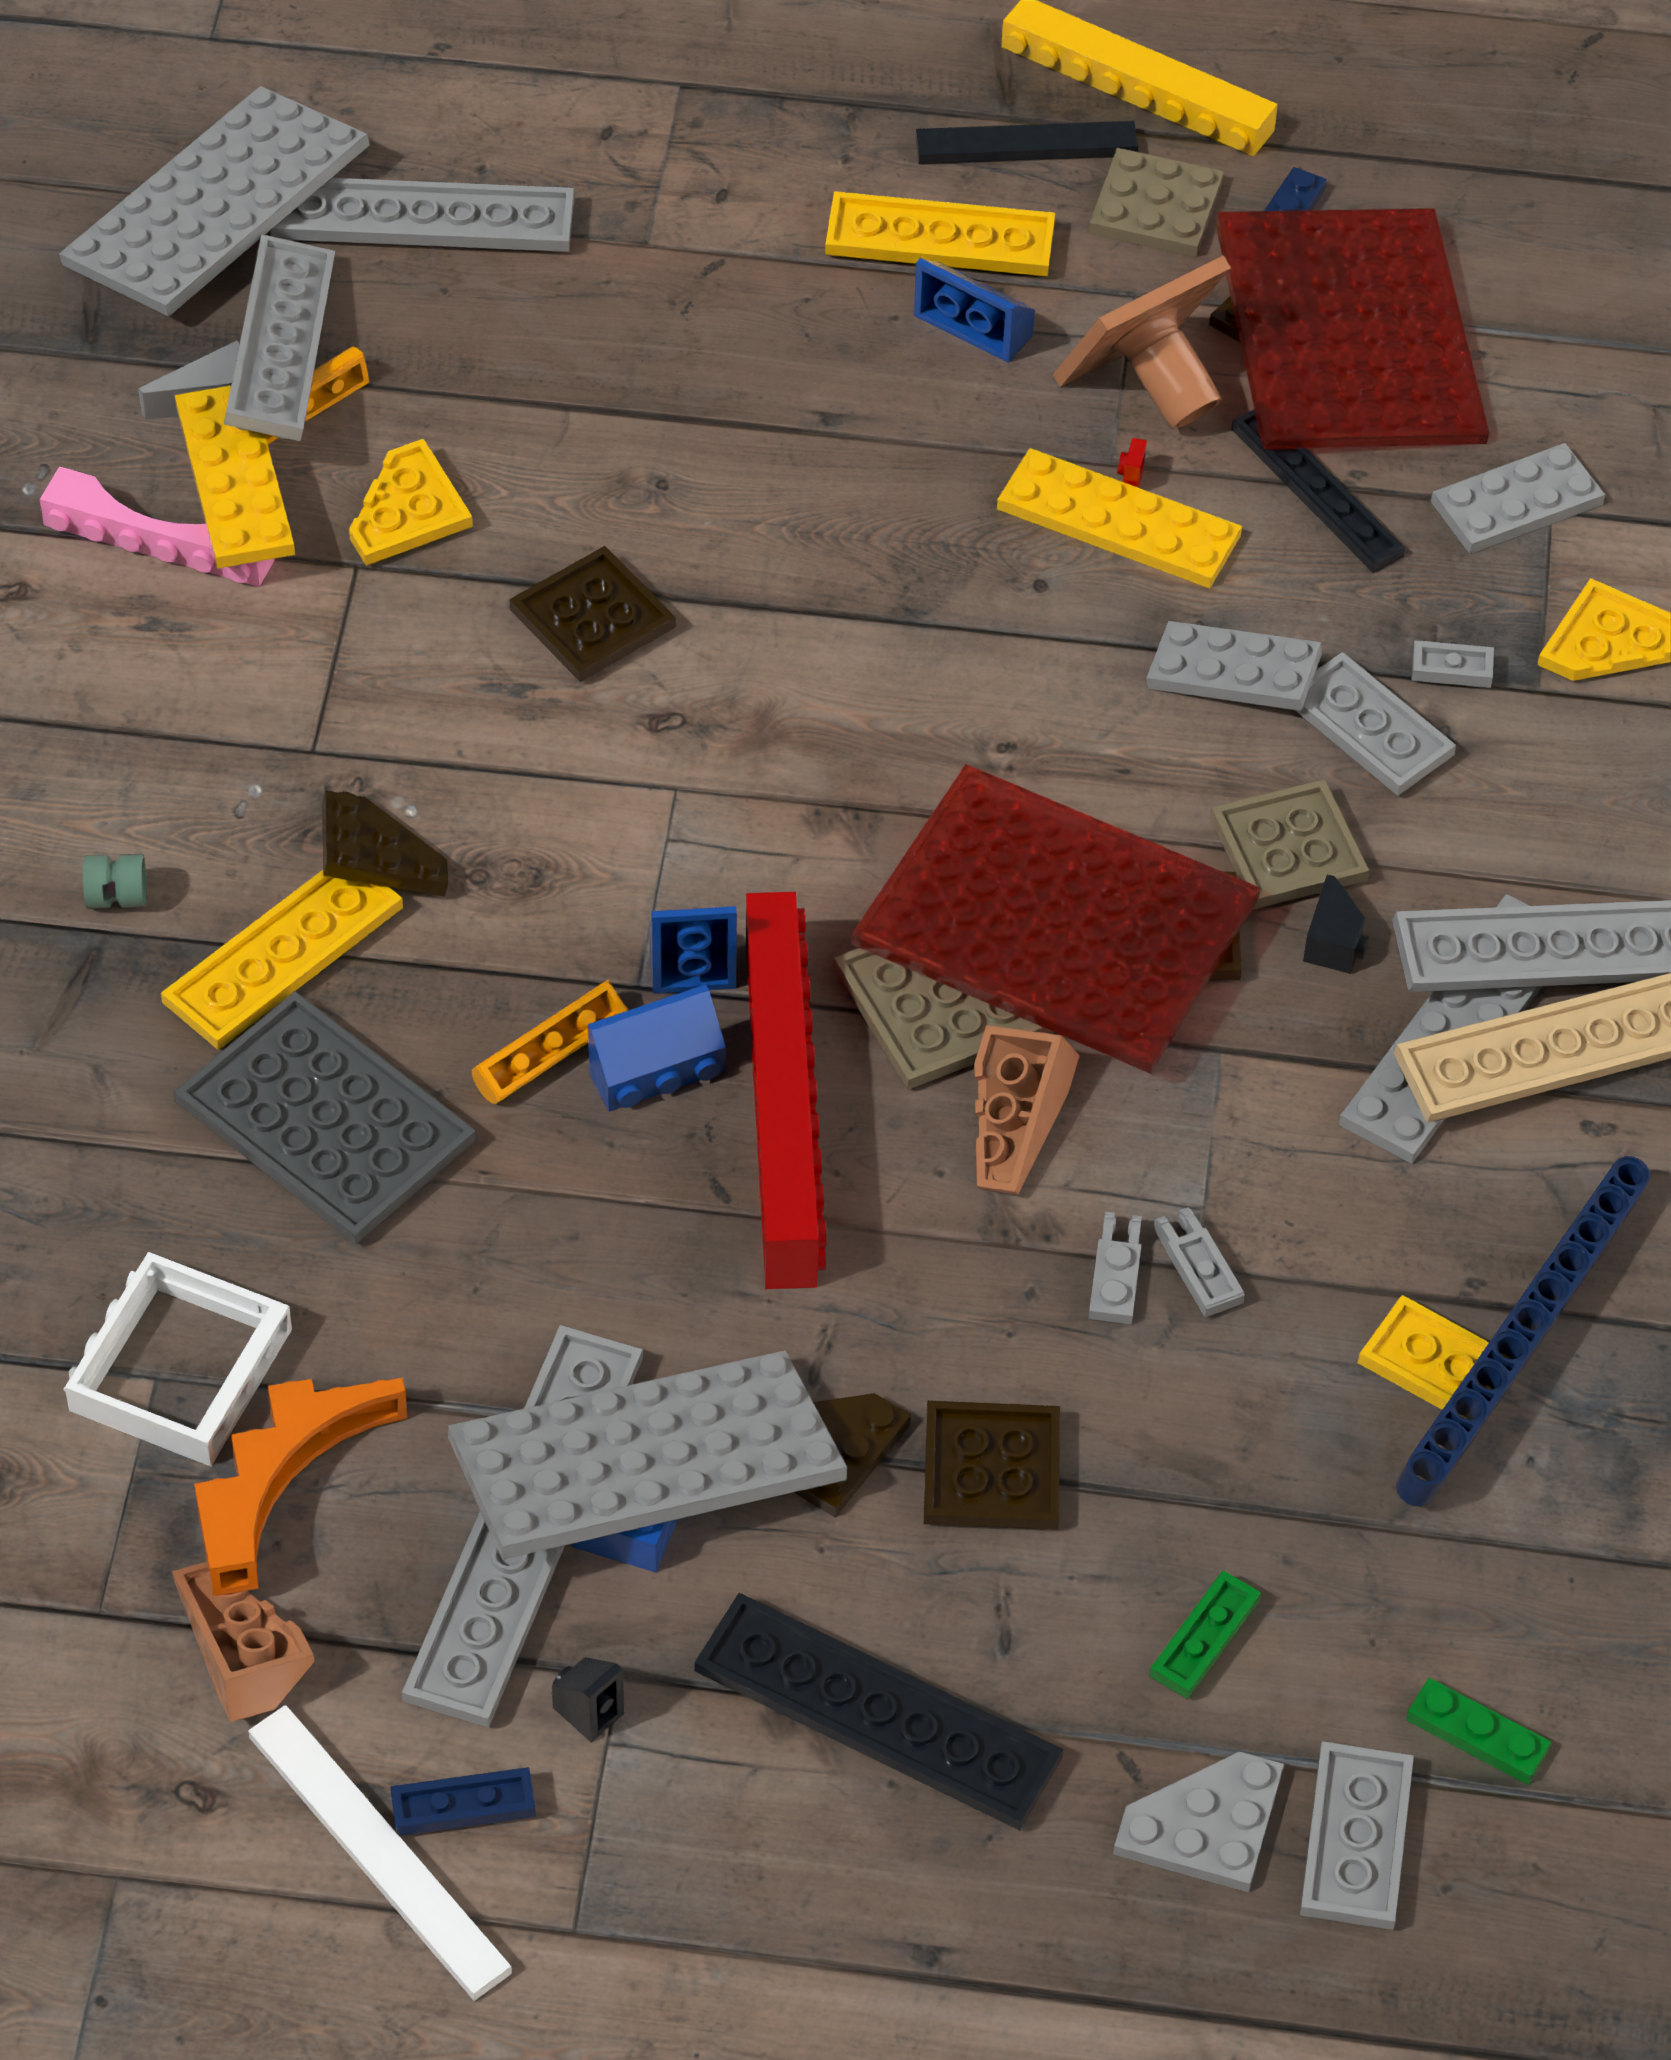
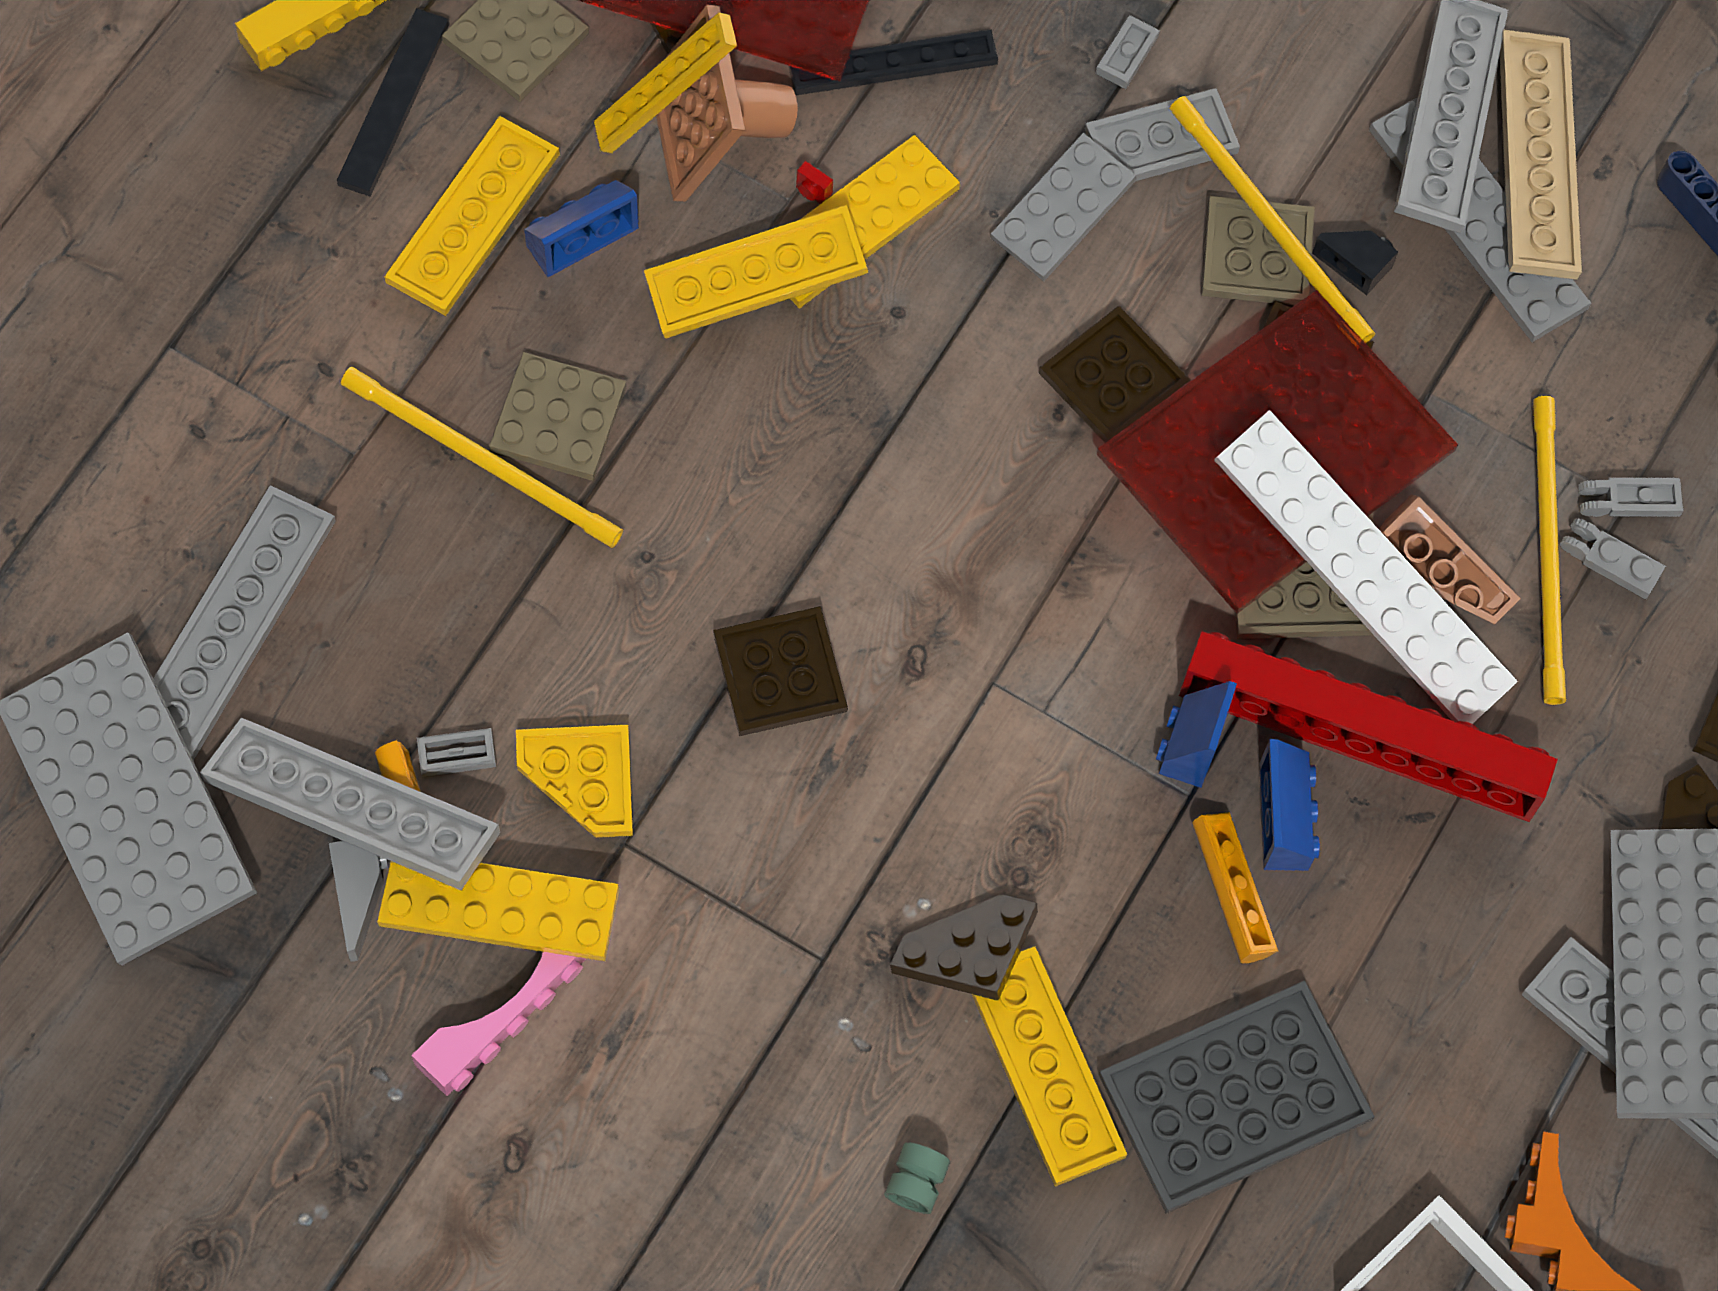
camera: 70 degrees left, 15 degrees up
(395, 432) = (457, 765): none -> light grey tile
(670, 425) = (590, 522): none -> yellow piece
(769, 368) = (558, 416): none -> dark tan plate
(950, 1251) = (1553, 673): none -> yellow piece
(954, 1030) = (1365, 570): none -> white plate
(1004, 446) = (756, 271): none -> yellow plate
(1073, 762) = (1113, 374): none -> dark brown plate
(1140, 281) = (665, 82): none -> yellow plate
(1252, 930) = (1195, 125): none -> yellow piece

